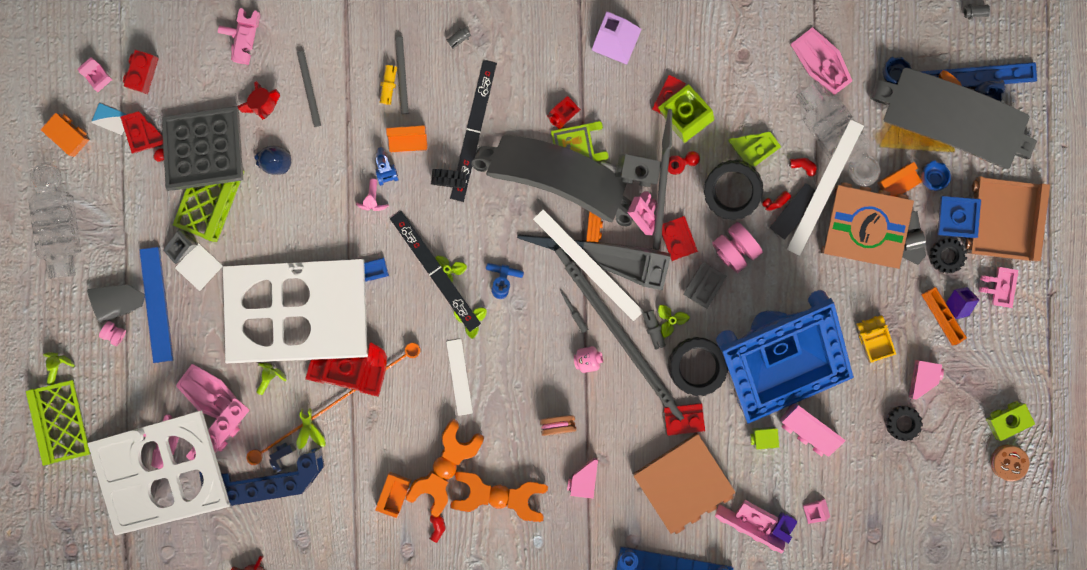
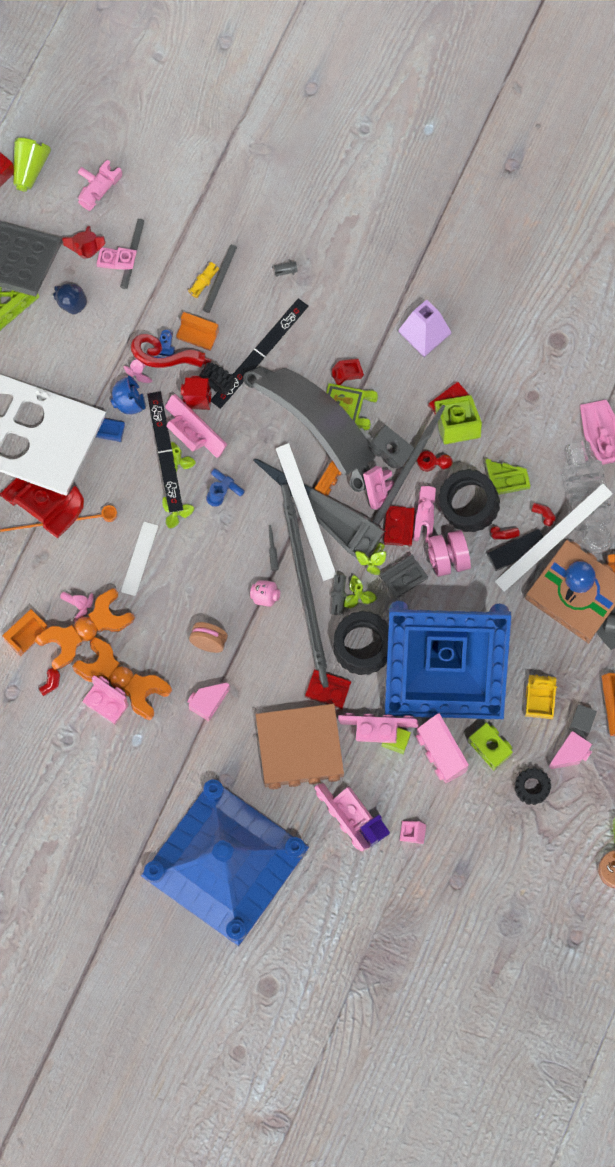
camera: 30 degrees right, 15 degrees down
(167, 46) = (28, 162): none -> lime cone
(297, 101) = (116, 259): none -> bright pink slope
(375, 234) = (127, 397): none -> blue cylinder
(412, 168) = (184, 357): none -> red plant
(428, 447) = (80, 602): none -> bright pink plant
(436, 201) = (197, 393): none -> red brick
(447, 236) = (192, 428): none -> bright pink bracket
(494, 522) = (105, 700): none -> bright pink bracket
(673, 284) = (377, 558): none -> lime plant
(697, 217) = (425, 512): none -> bright pink piece
(747, 439) = (377, 728): none -> bright pink bracket
(860, 413) = (495, 757): none -> lime brick
(866, 215) = (580, 577): none -> blue hair
(922, 345) = (582, 720): none -> dark grey brick

